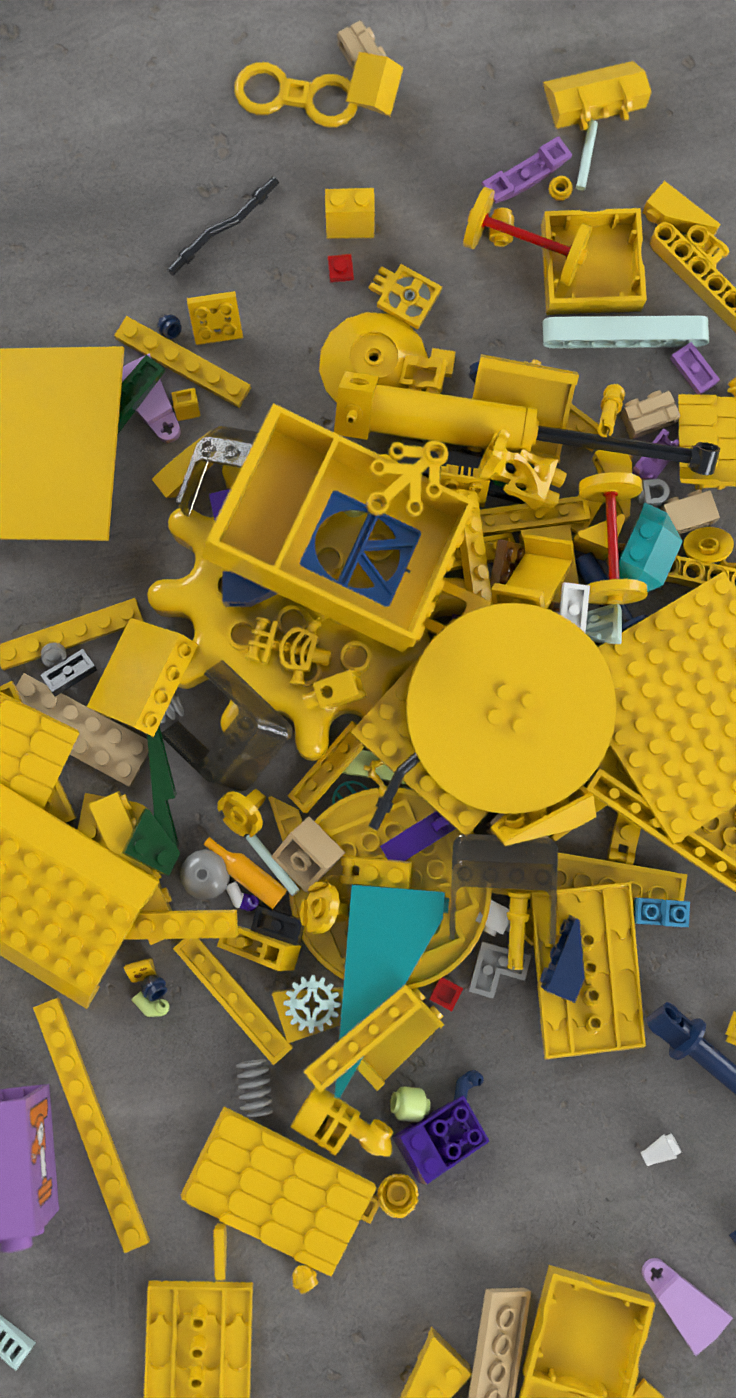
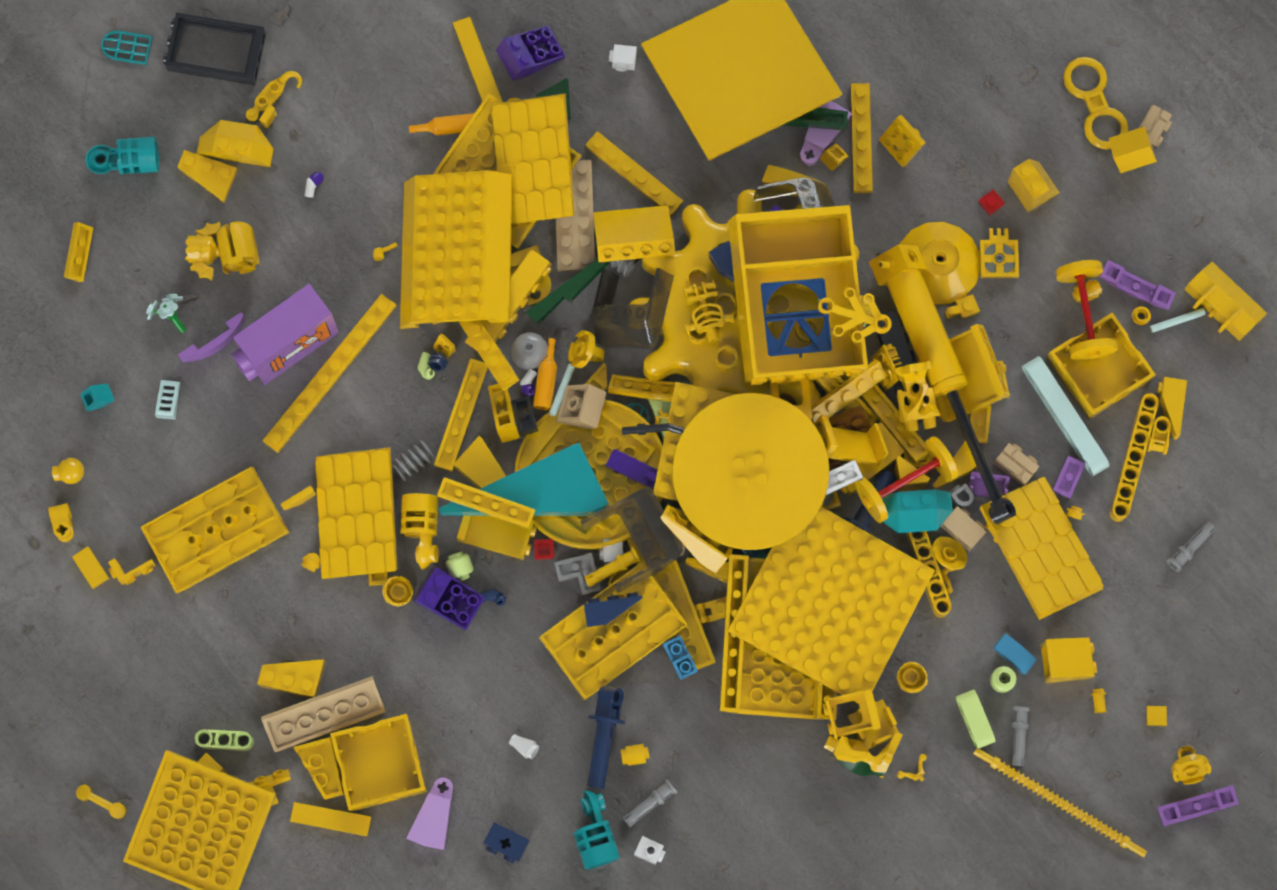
camera: 60 degrees right, 5 degrees down
(53, 654) = (614, 172): light grey tile -> none
(68, 672) = (608, 188): plate -> none
(151, 845) = (528, 304): dark green wing -> none
(169, 326) = (879, 115): dark blue plate -> none
(259, 196) = (936, 97): black bar -> none
(299, 1003) = (494, 458): light aqua gear -> none
(322, 908) = (552, 435): yellow tile -> none
(346, 689) = (696, 357): yellow torso -> none
(376, 872) = (596, 456): yellow plate -> none
(423, 373) = (947, 297): yellow cylinder -> none
(605, 624) = (846, 506): light aqua wing -> none
(611, 406) = (1004, 433): yellow pin -> none

